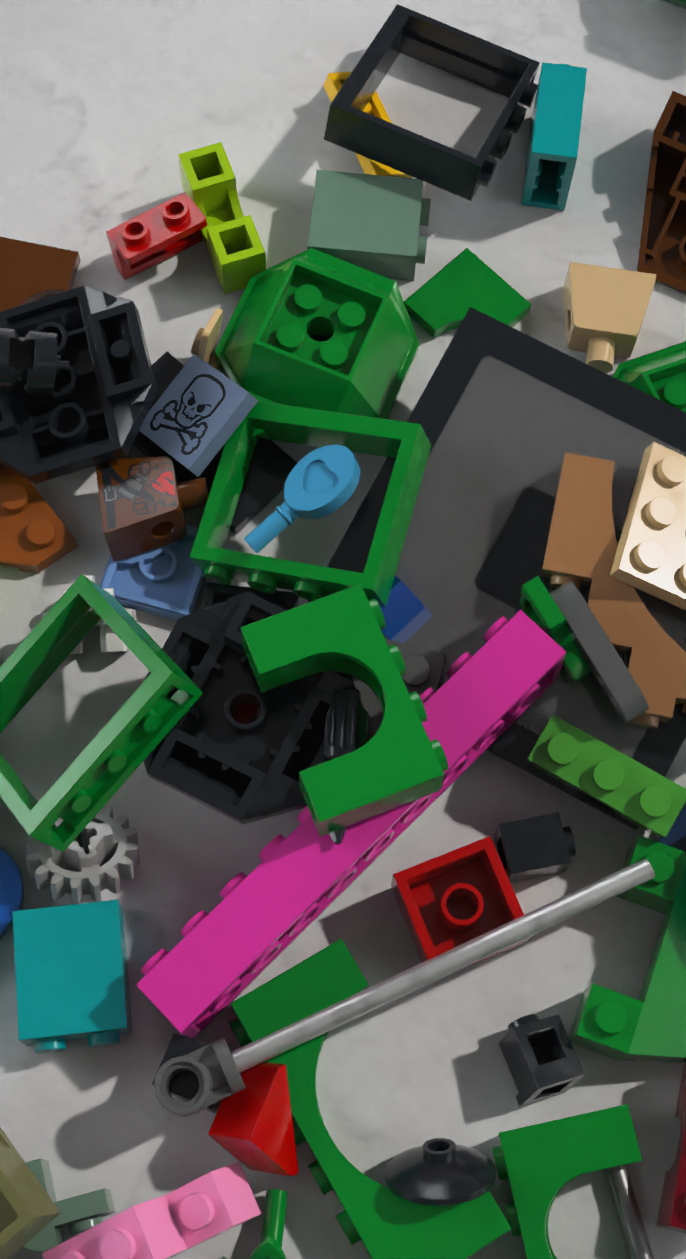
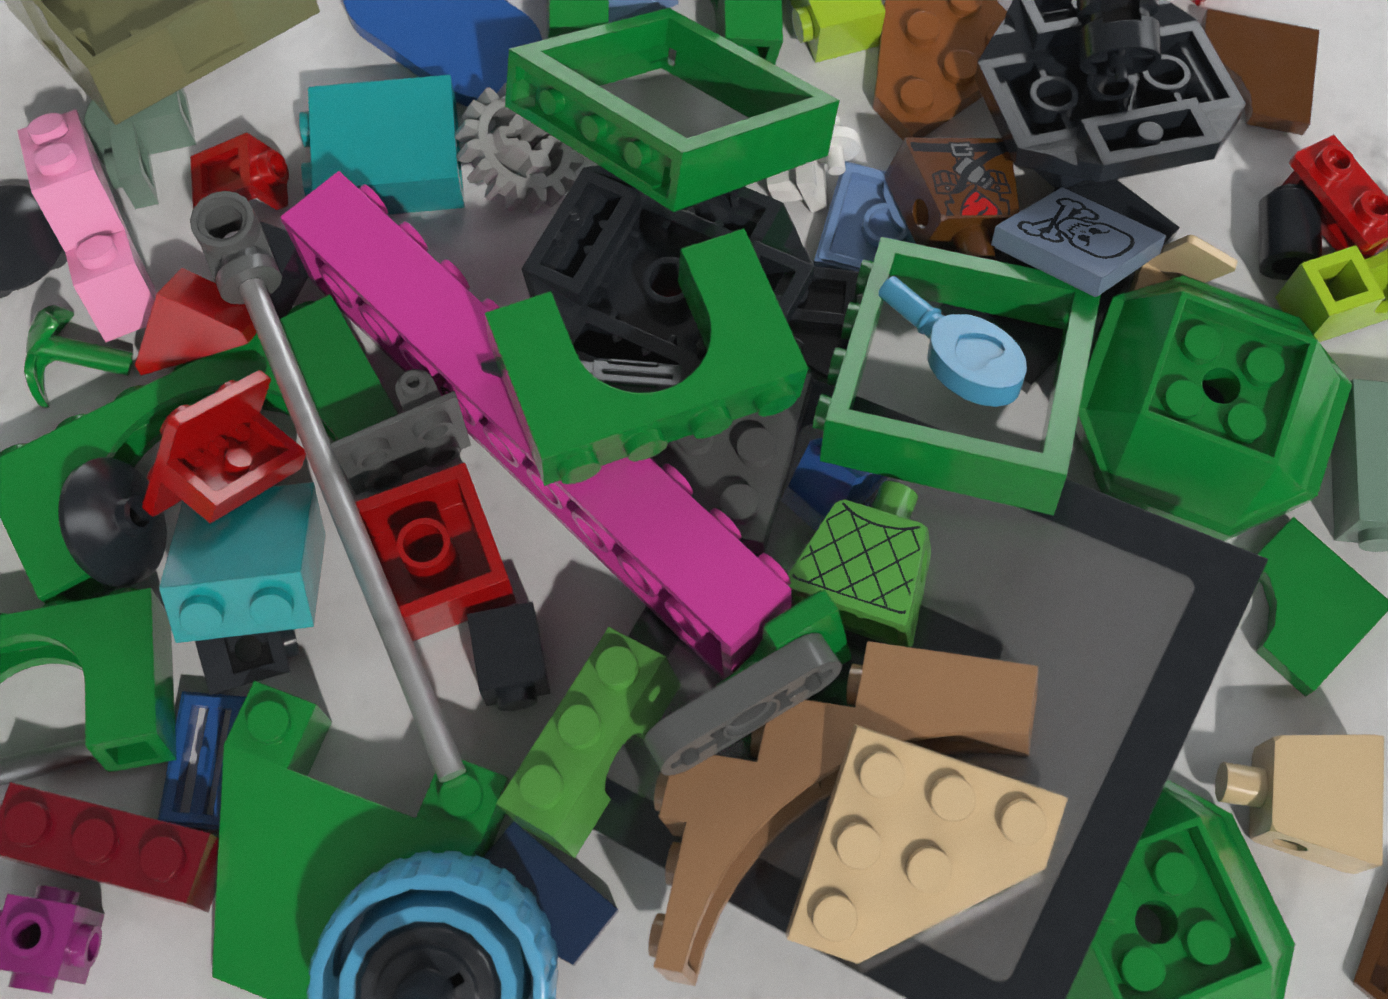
camera: 90 degrees right, 0 degrees up
(95, 1109) = (241, 167): none -> red bracket
(174, 276) = (1288, 230): none -> black brick
(353, 912) = (426, 433): none -> dark grey hinge
(392, 1075) = (220, 452): none -> red bracket
(472, 572) = (869, 565): none -> bright green torso
(476, 1051) = (246, 569): none -> teal brick
(670, 1090) = (177, 769): none -> blue tile

